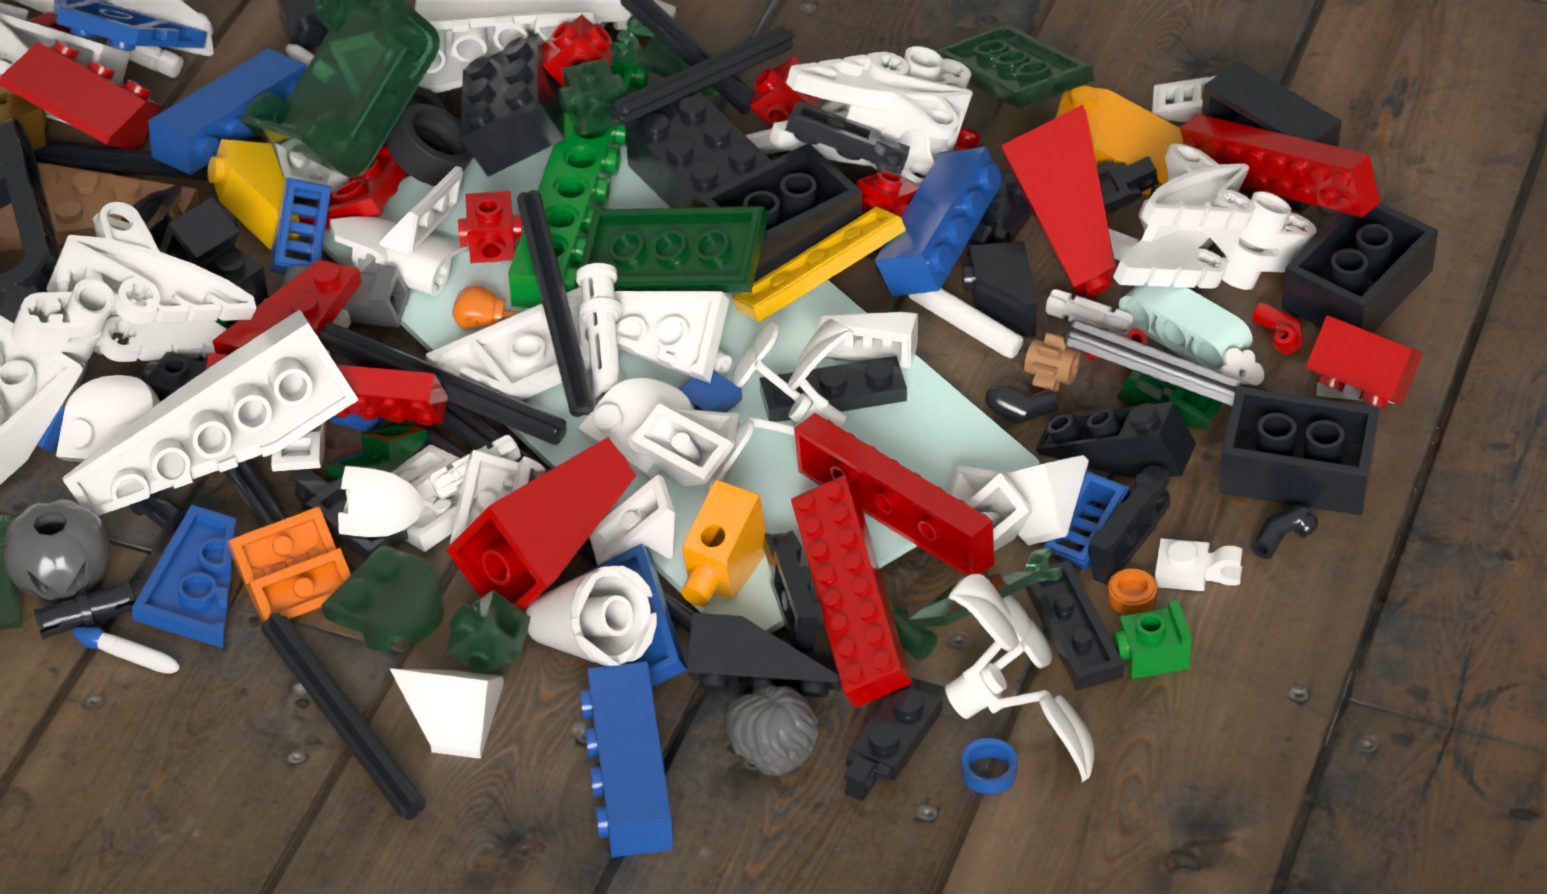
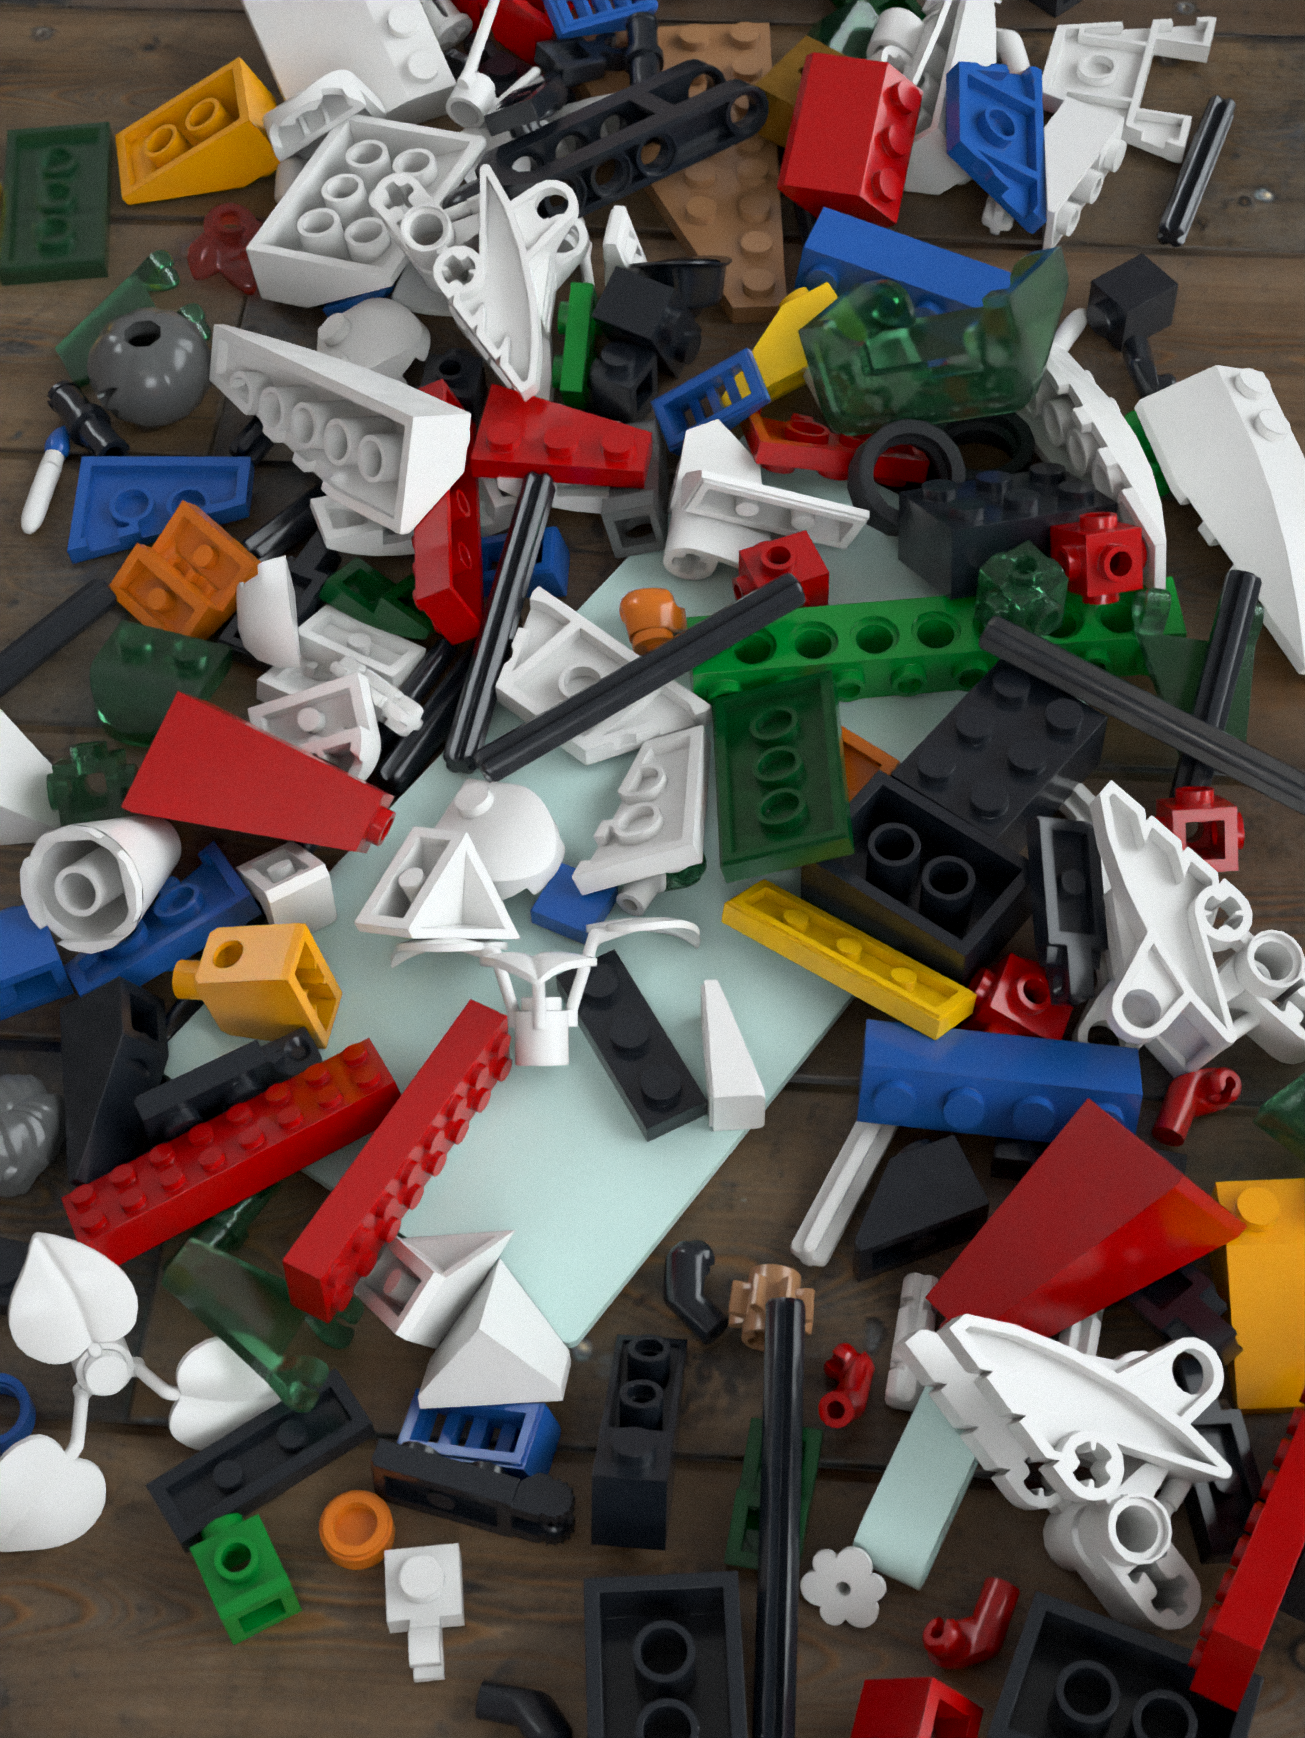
camera: 75 degrees right, 10 degrees up
(600, 314) = (647, 734): white pin -> none

